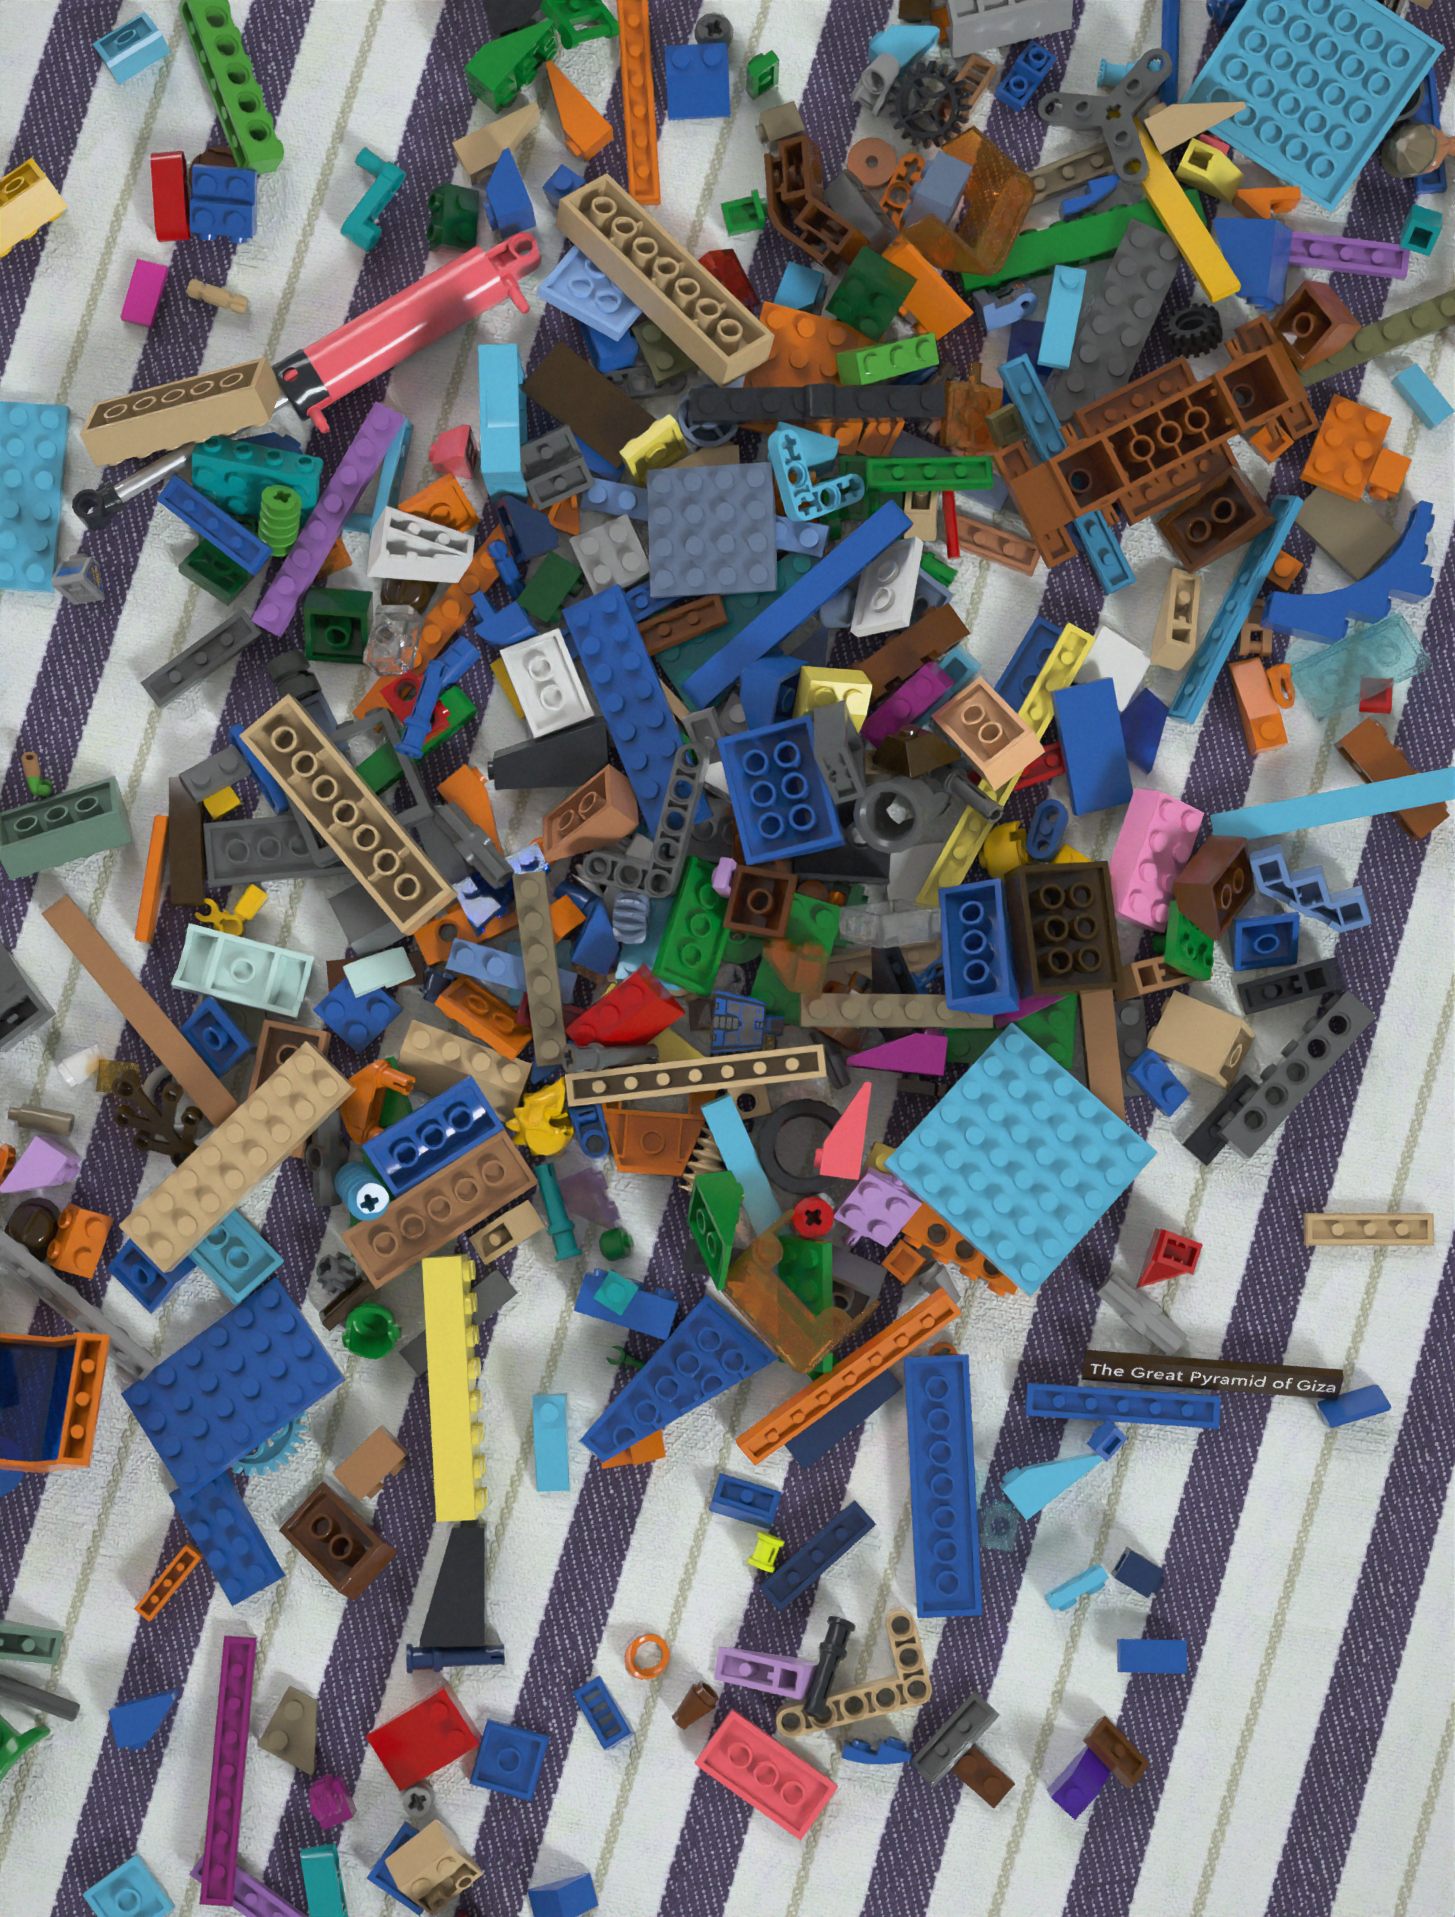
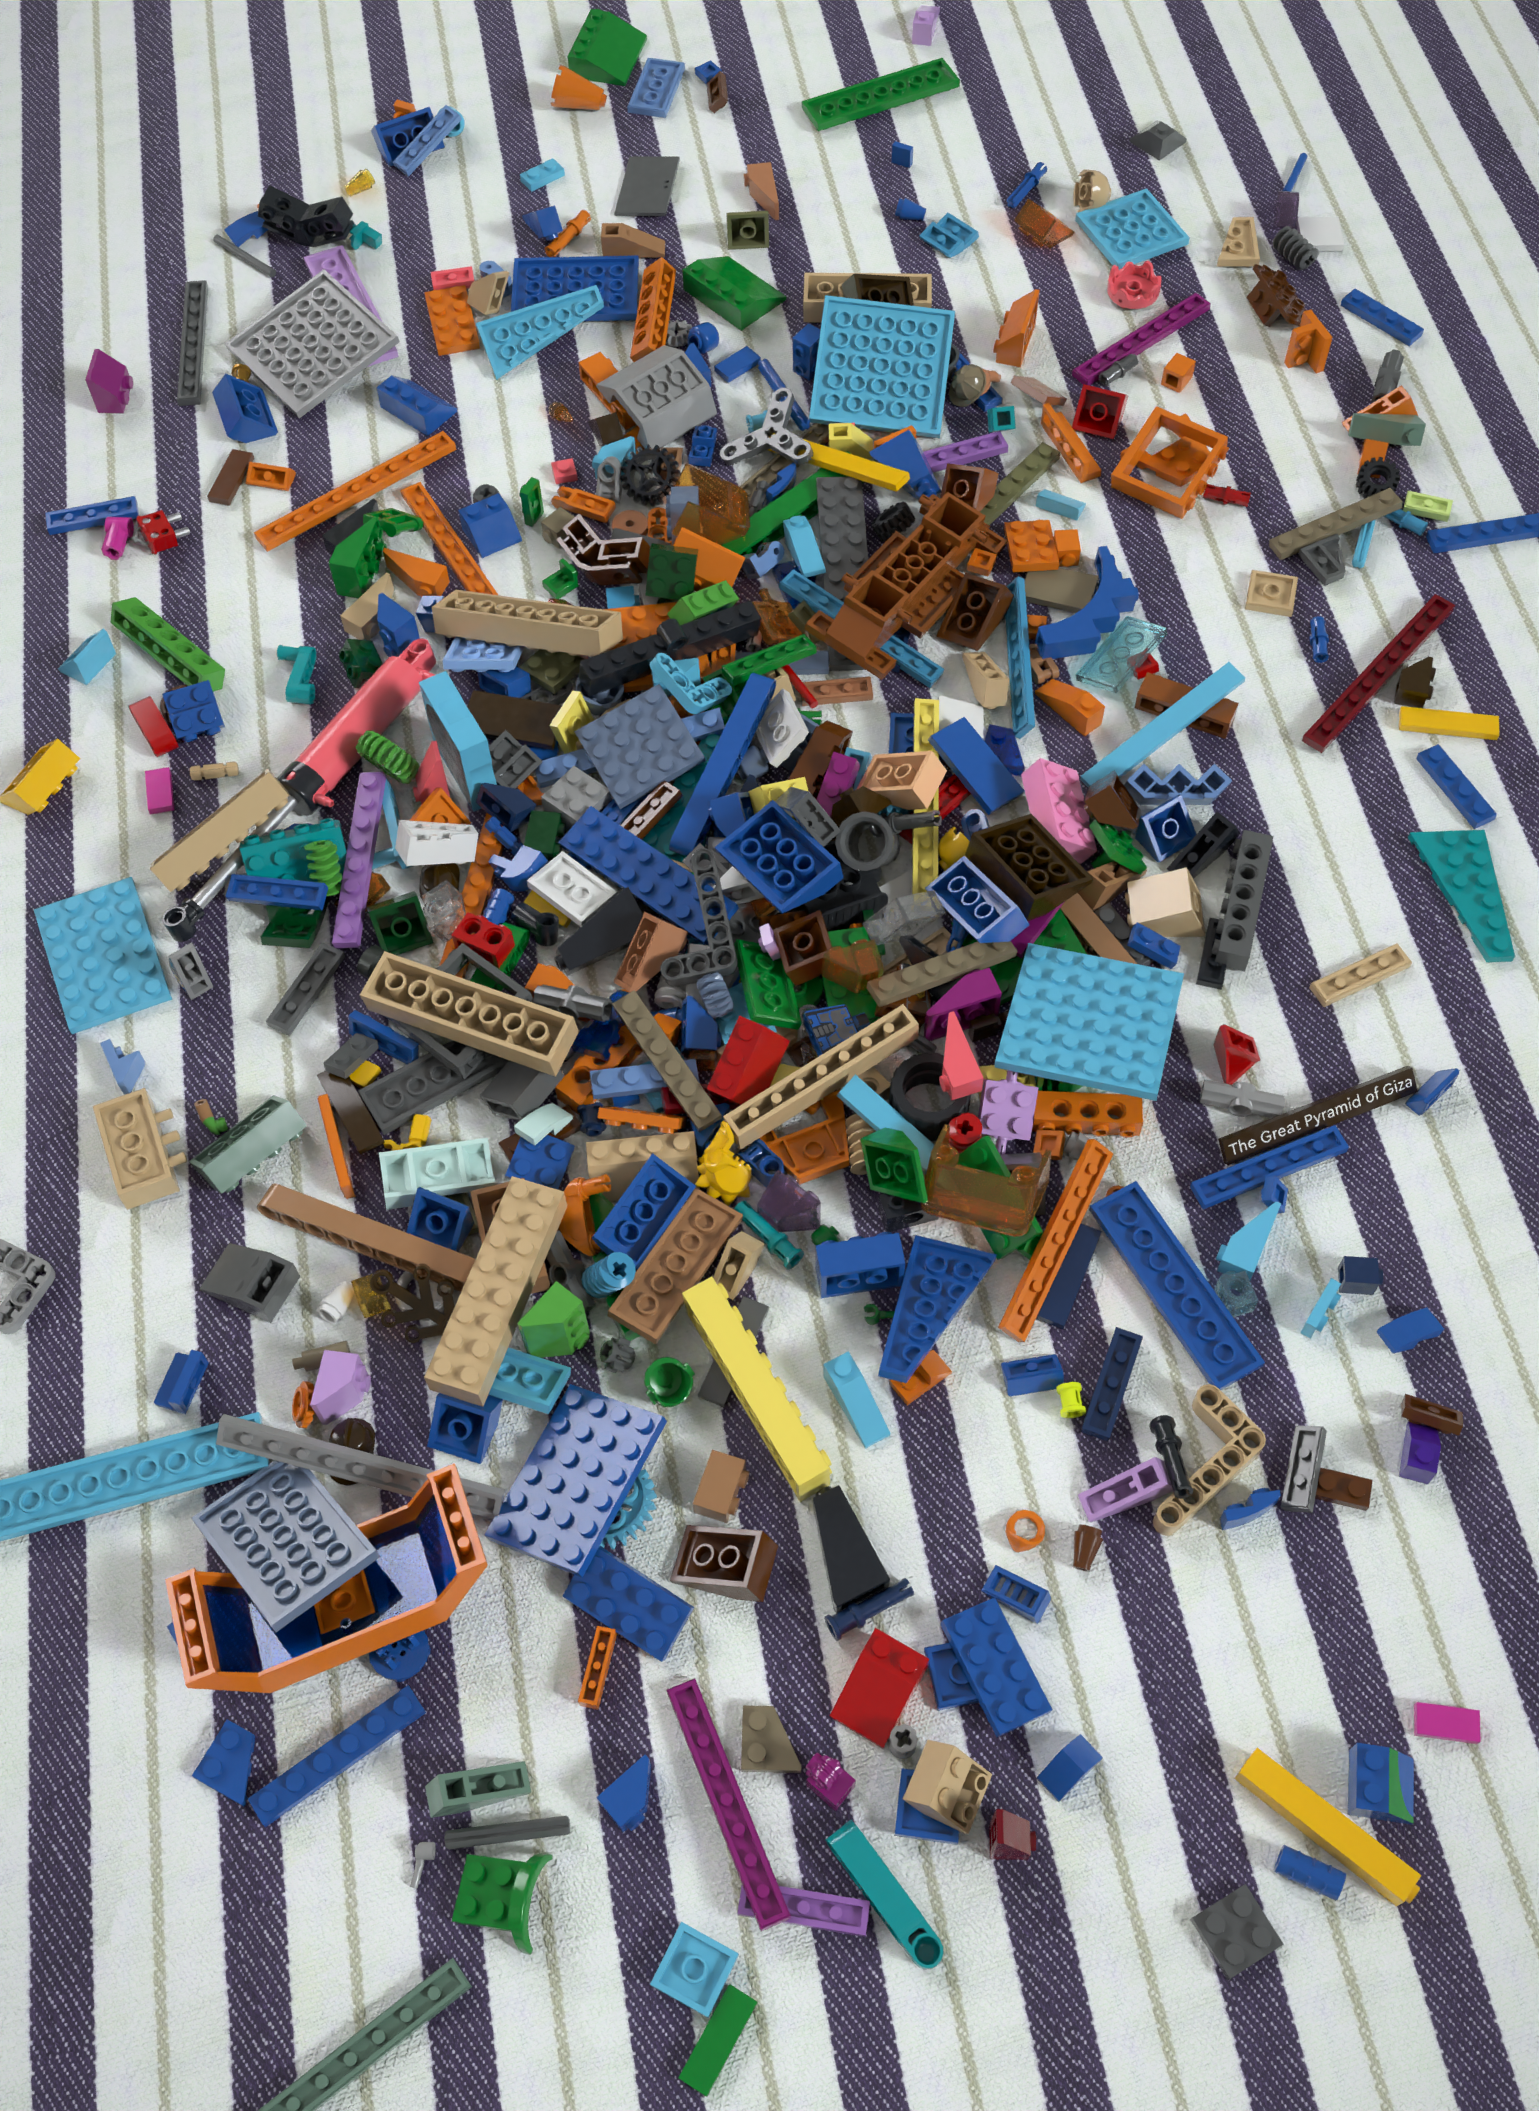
camera: 25 degrees left, 25 degrees down
(79, 1240) = (395, 1430): orange bracket -> none
(285, 1219) = (555, 1324): none -> bright green slope
(346, 1302) = (637, 1372): dark brown tile -> none
(415, 398) = (387, 757): none -> bright green gear
(418, 724) = (490, 937): blue pin -> none
(490, 701) = (541, 924): none -> black piece
(543, 1774) = (996, 1667): none -> blue plate
(597, 1057) = (741, 1091): dark grey pin -> none
(616, 1292) = (847, 1239): teal brick -> none
(766, 1774) = (1175, 1573): coral plate -> none
(832, 30) = (564, 471): none -> coral plate
(832, 101) = (584, 503): none -> orange hinge
(1047, 205) = (758, 497): none -> dark grey axle
(1182, 121) = (815, 419): tan slope -> none
(1281, 676) = (1072, 678): orange piece -> none

